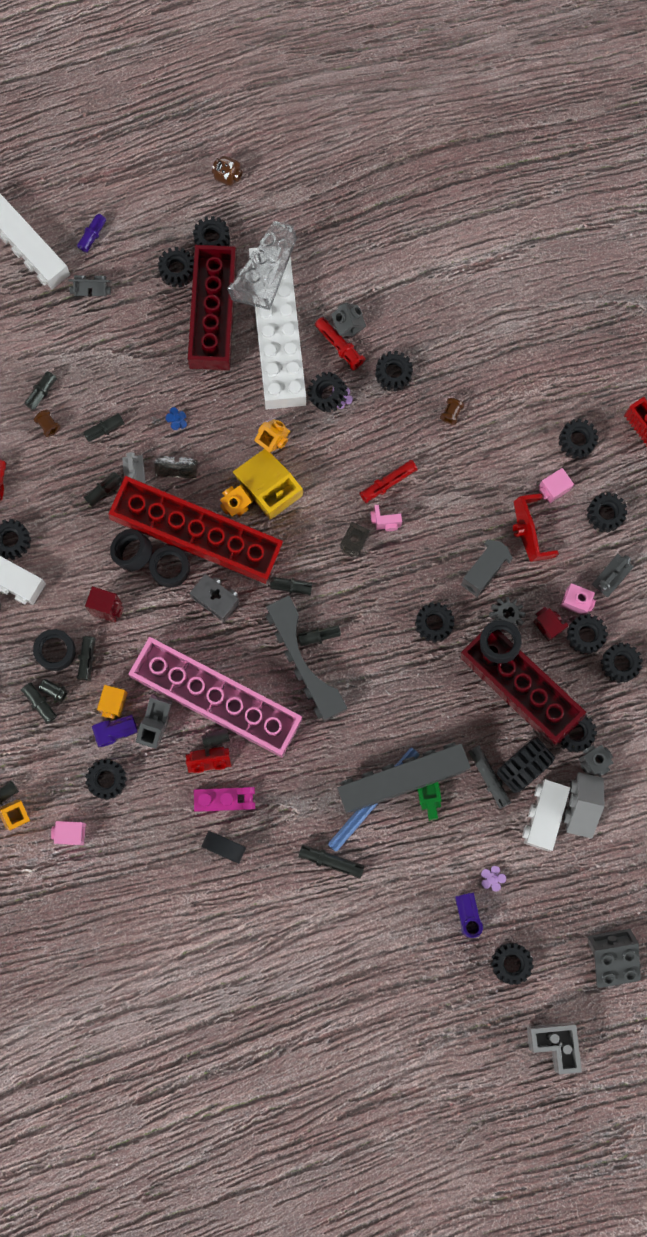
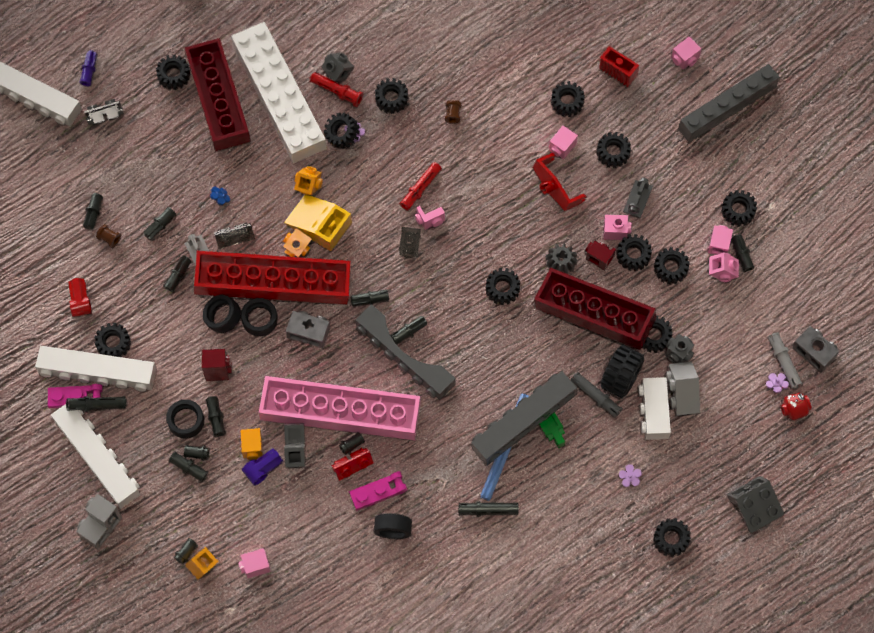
camera: 15 degrees left, 10 degrees down
(119, 779) = (275, 519): black tyre -> none
(211, 225) = (191, 28): black tyre -> none
(262, 274) = (253, 46): clear wedge -> none
(467, 913) = (620, 510): dark purple piece -> none
(486, 567) = (529, 226): dark grey piece -> none
(500, 625) = (570, 289): black tyre -> none
(559, 1039) = (734, 582): light grey brick -> none

